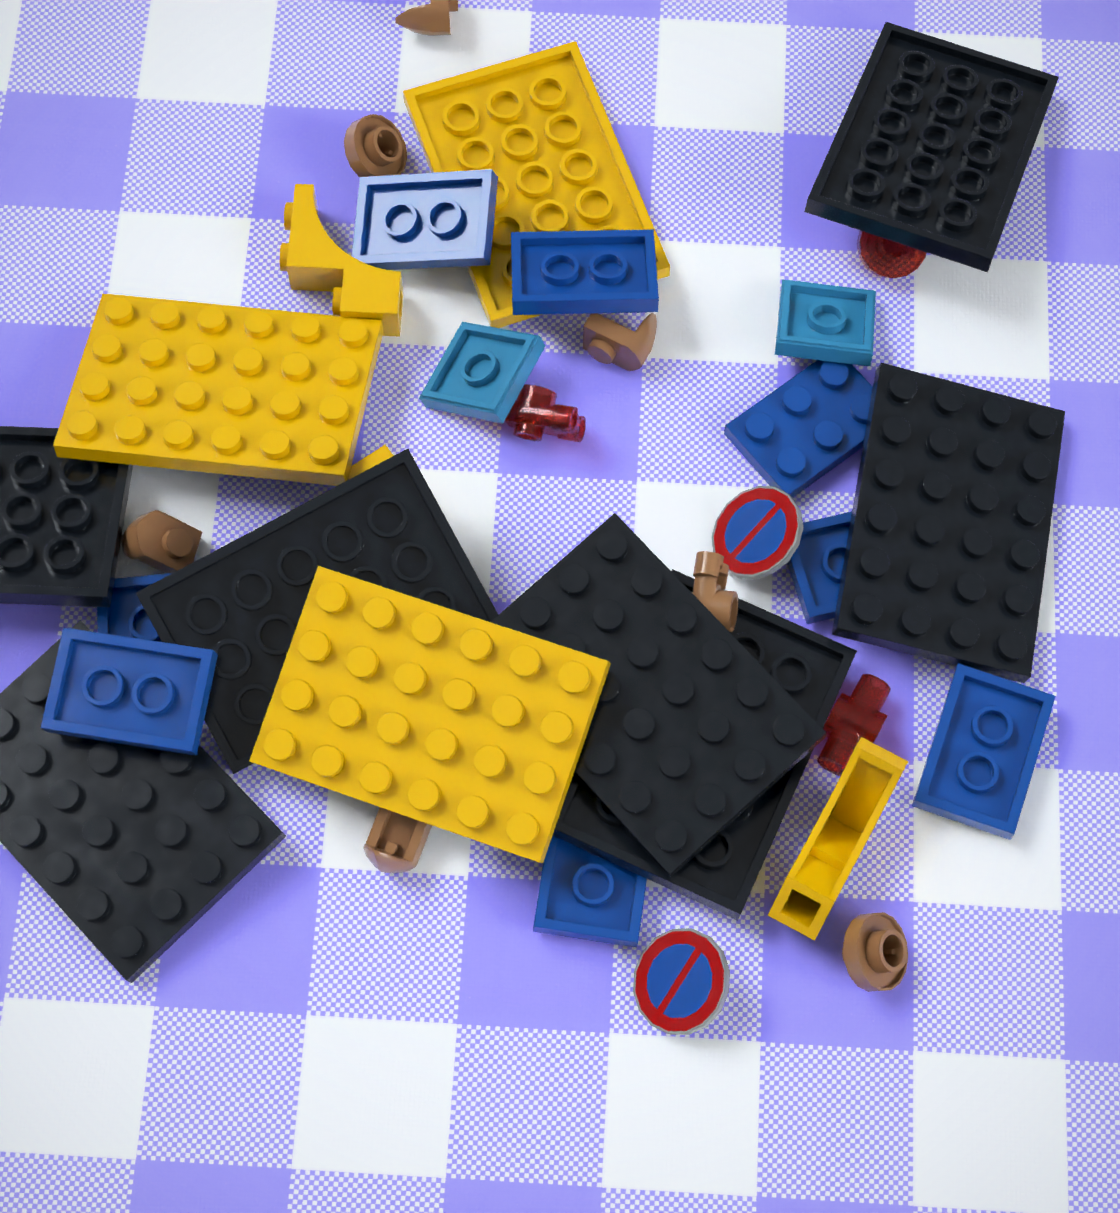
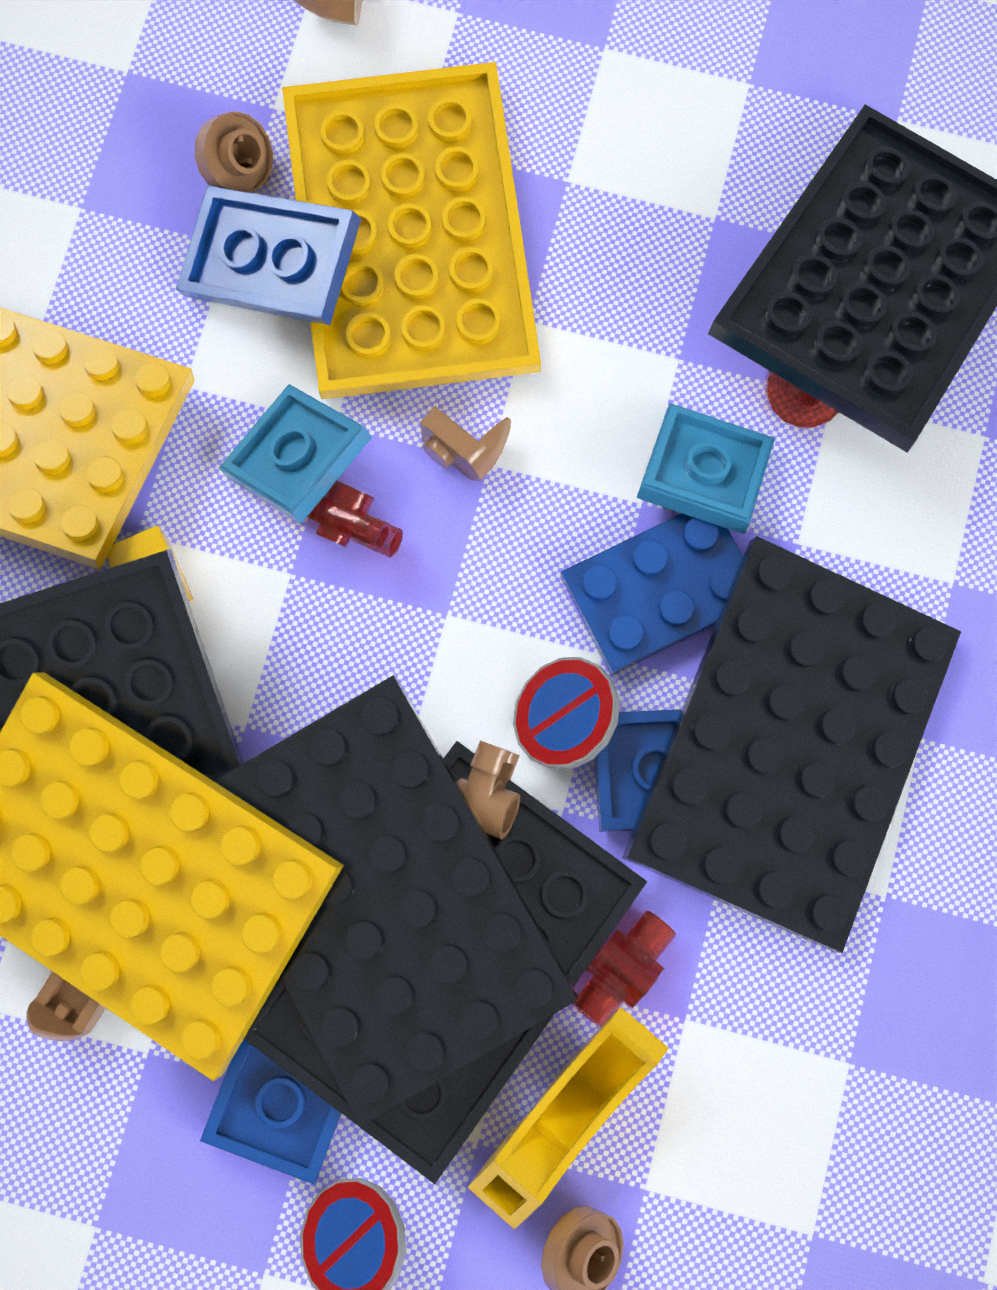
camera: 10 degrees right, 10 degrees up
(321, 265) = (133, 281): yellow arch -> none
(584, 272) = (433, 357): blue plate -> none
(984, 751) = (767, 1031): blue plate -> none

